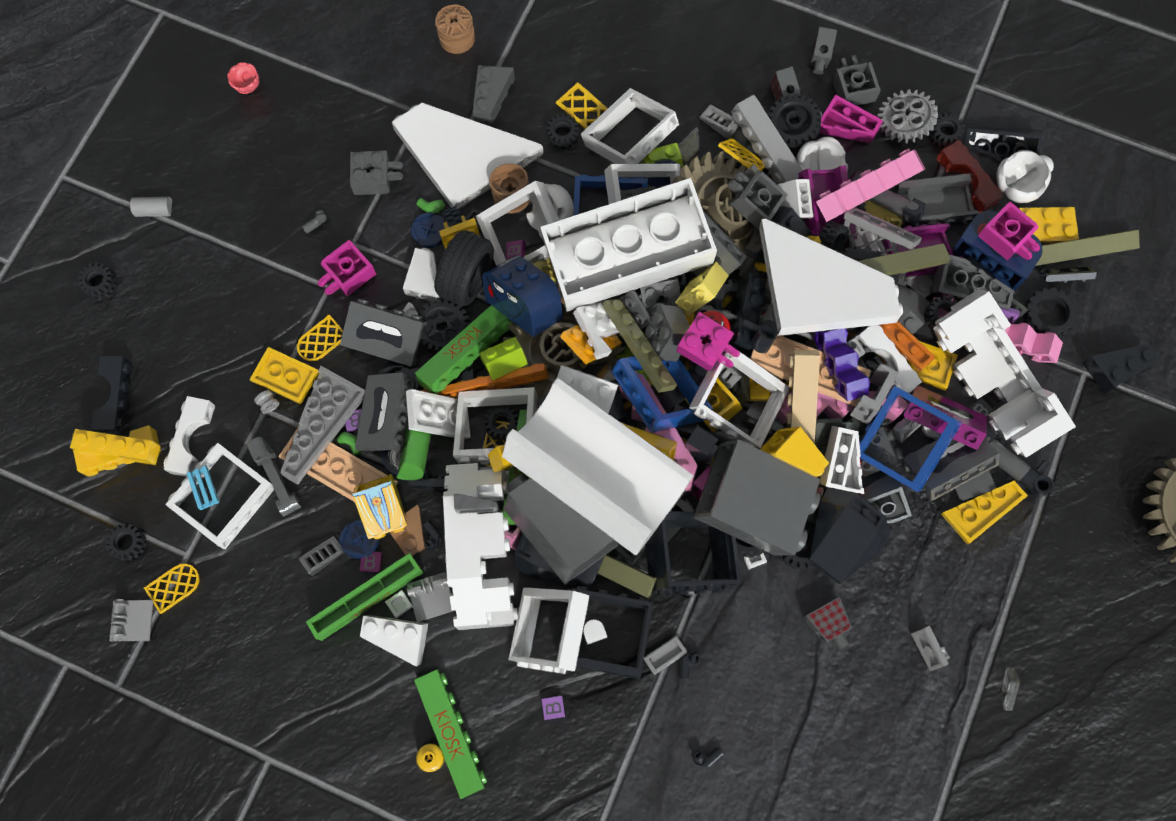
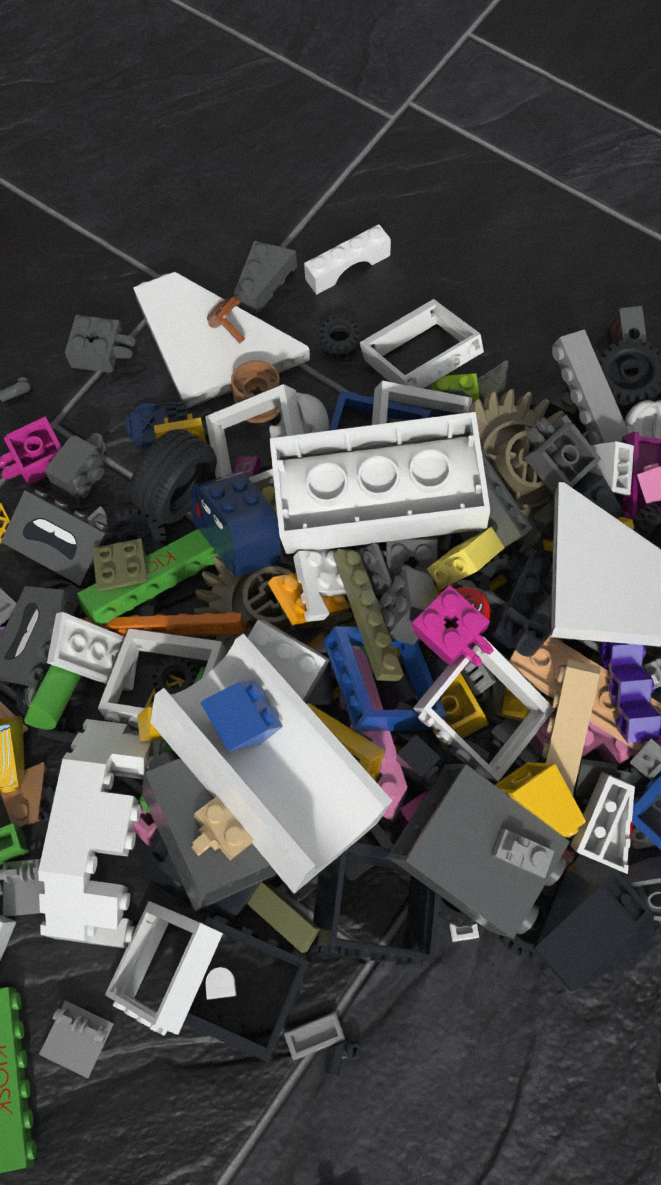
camera: 15 degrees right, 5 degrees down
(384, 275) = (77, 466): none -> dark grey hinge
(421, 276) = (116, 479): white slope -> none
(433, 207) = (157, 397): bright green arm -> none
(441, 344) = (120, 565): none -> olive bracket
(455, 29) = (238, 195): medium nougat wheel -> none
(469, 504) = (89, 776): flat silver slope -> none
(470, 135) = (218, 317): none -> dark orange piece
(494, 695) = (76, 1039): none -> light grey hinge
(503, 358) = (192, 597): lime slope -> none
(540, 77) = (326, 268): none -> white arch
(553, 707) = (148, 1074): medium lavender tile -> none
(572, 437) = (242, 715): none -> blue slope
(573, 522) = (220, 830): none -> tan hinge
(587, 96) = (380, 300): yellow window -> none
(725, 146) = (548, 402): yellow window -> none
(730, 126) = (544, 371): light grey slope -> none
(790, 494) = (523, 853): none -> light grey hinge
(830, 623) = (548, 1043): dark grey torso -> none

